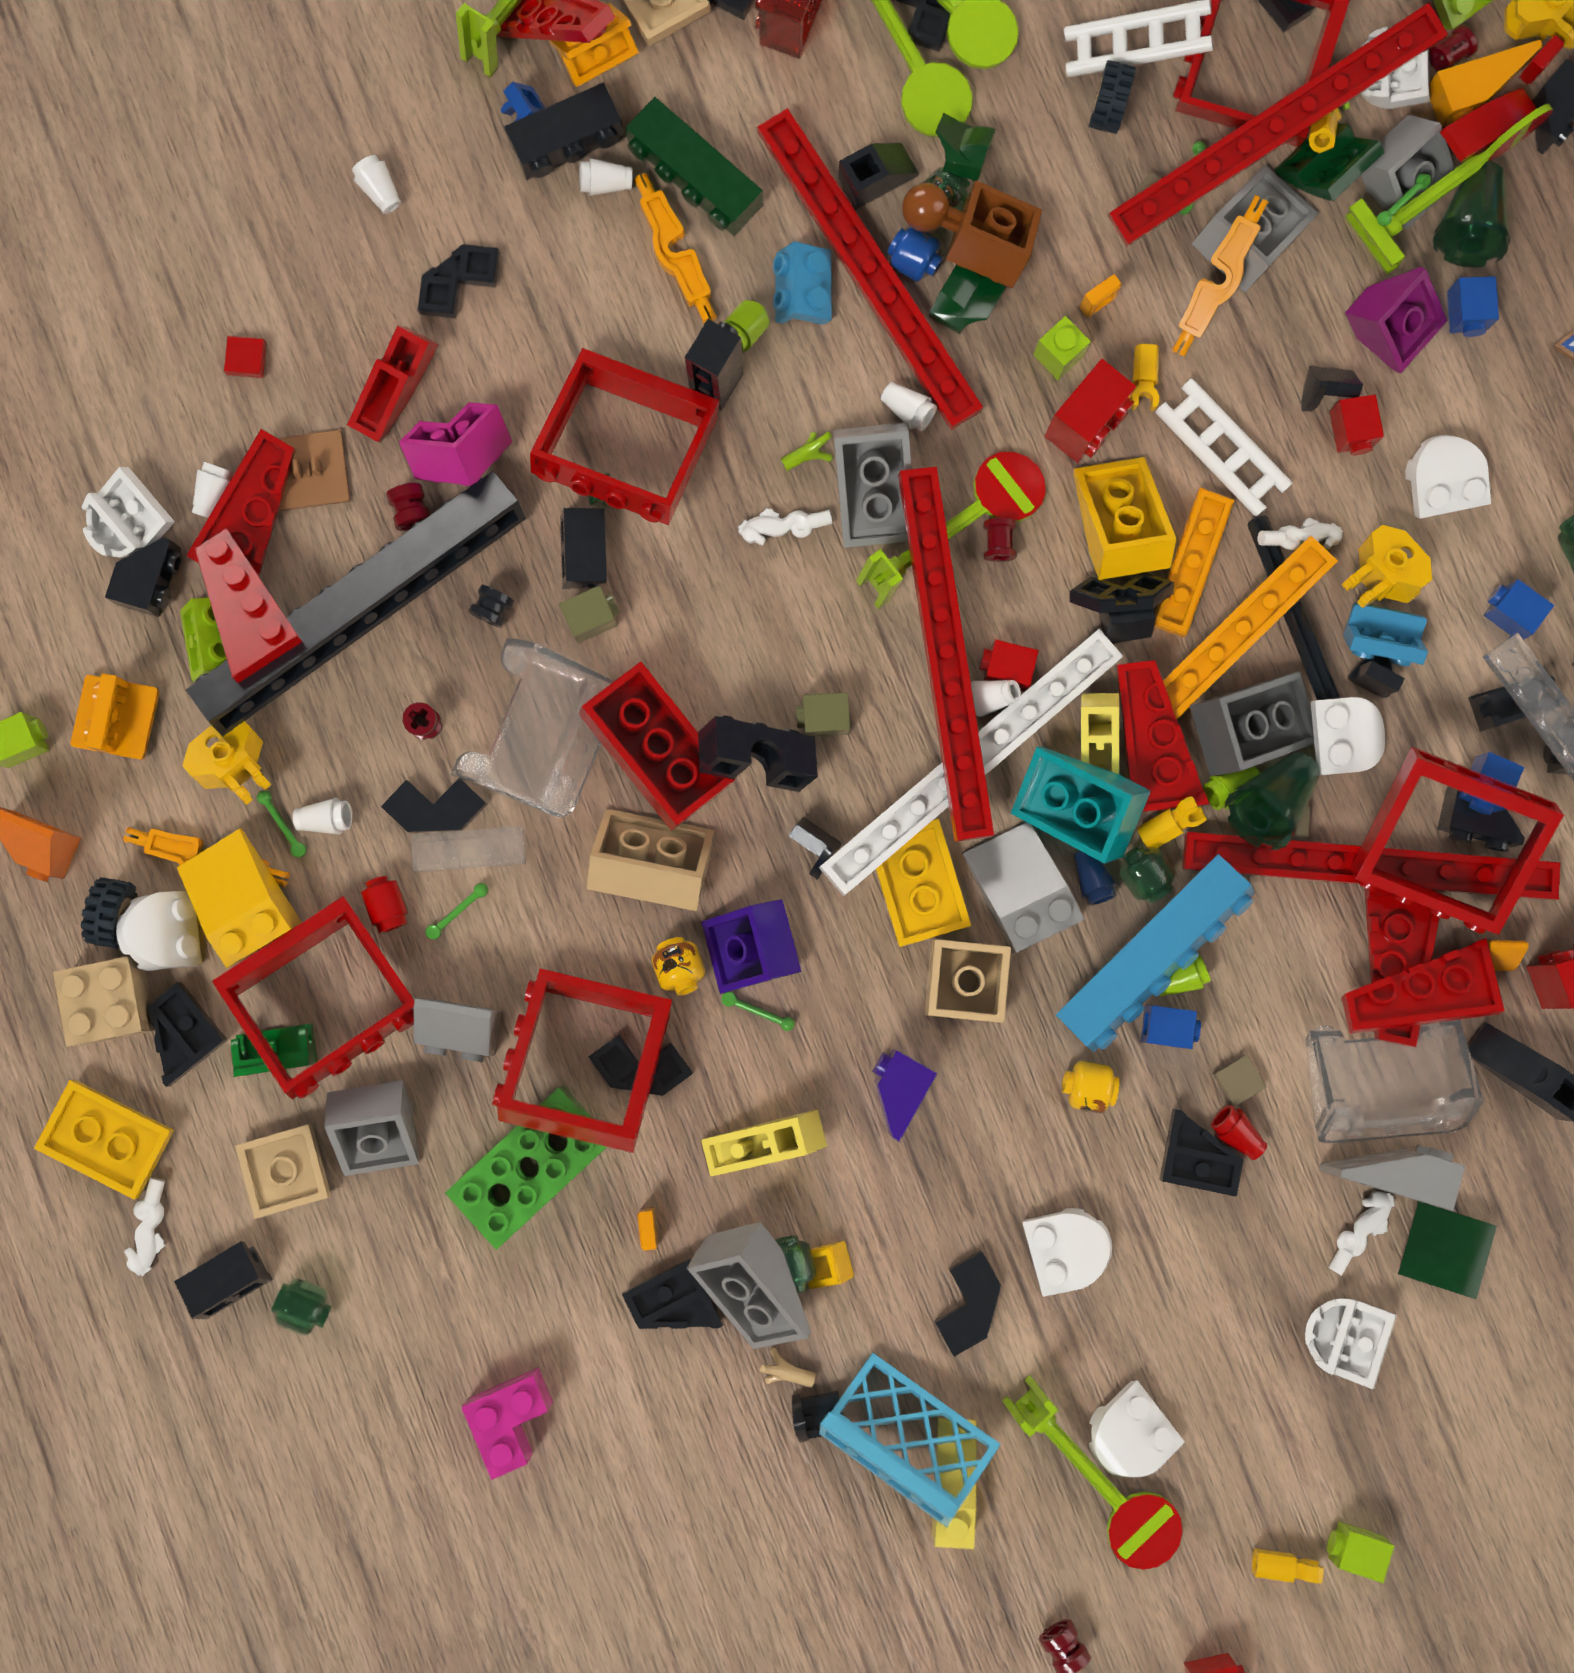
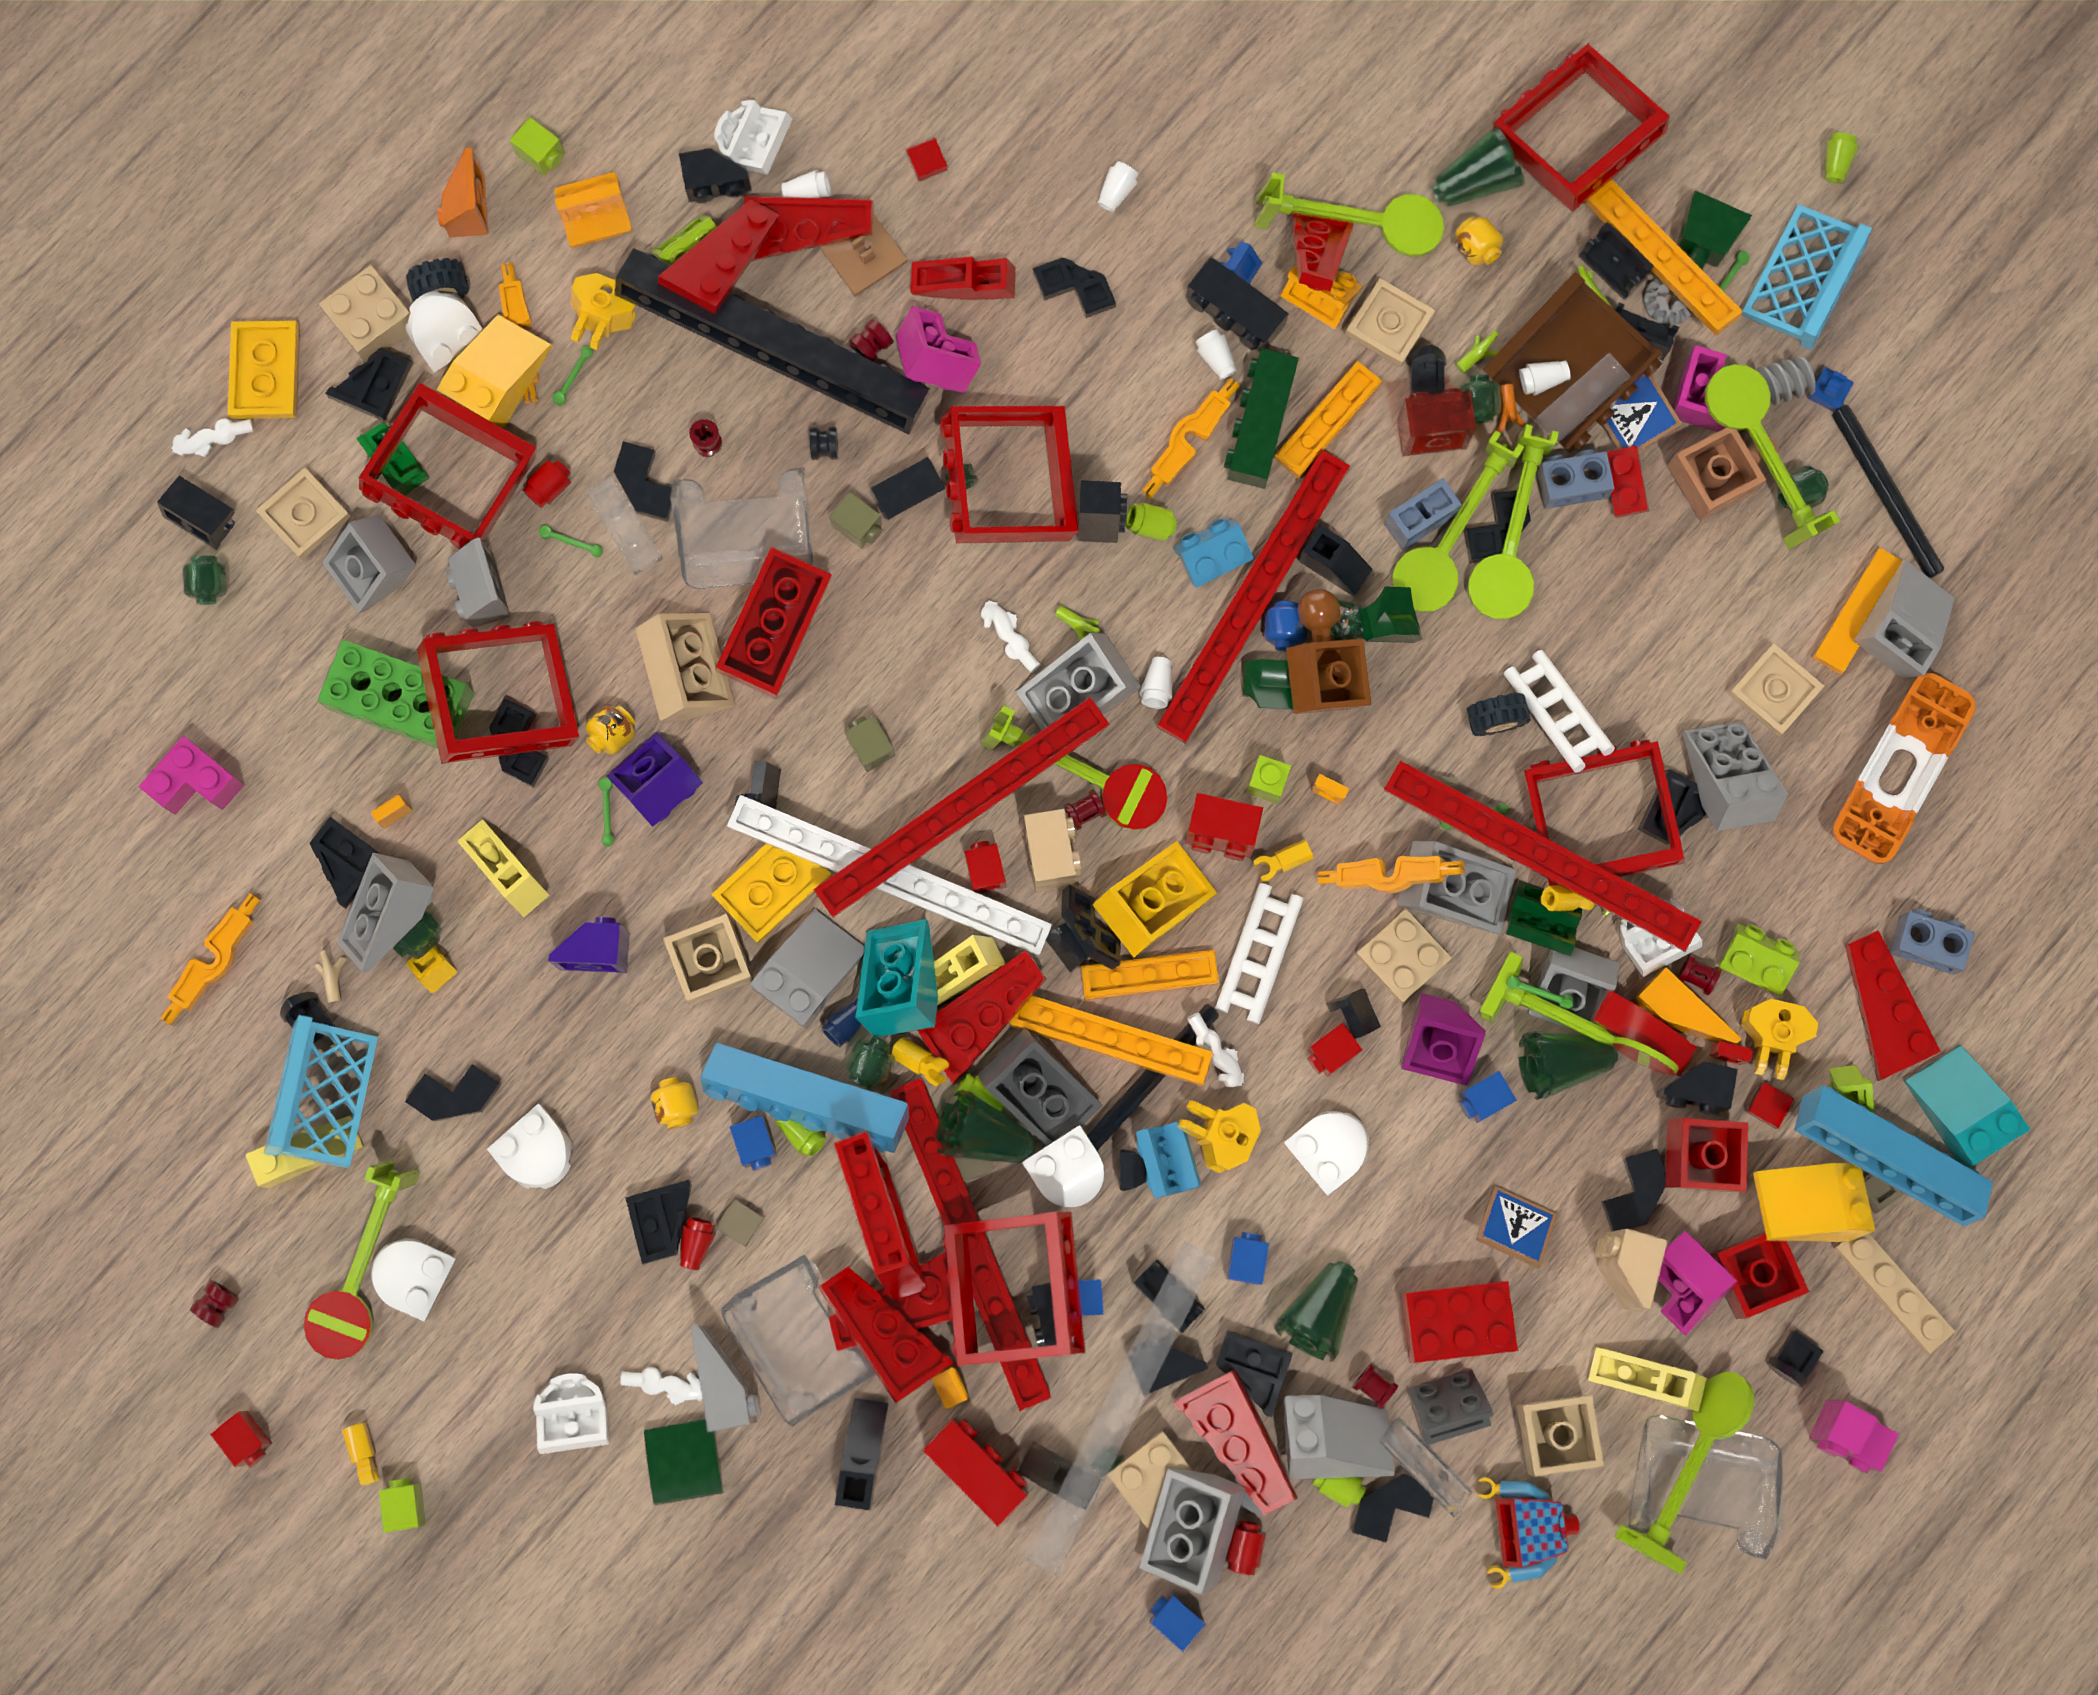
camera: 65 degrees right, 5 degrees down
(324, 817) = (593, 403): white cone -> none
(714, 1505) = (197, 973): none -> light orange piece
(726, 106) = (1328, 419): none -> light orange tile
(784, 754) = (819, 725): black arch -> none
(875, 63) = (1423, 514): none -> sand blue brick
(994, 695) = (949, 862): white cone -> none
(1030, 590) = (1049, 848): none -> tan brick
(1294, 314) = (1403, 956): none -> tan plate
(1331, 934) = (880, 1216): none -> red window

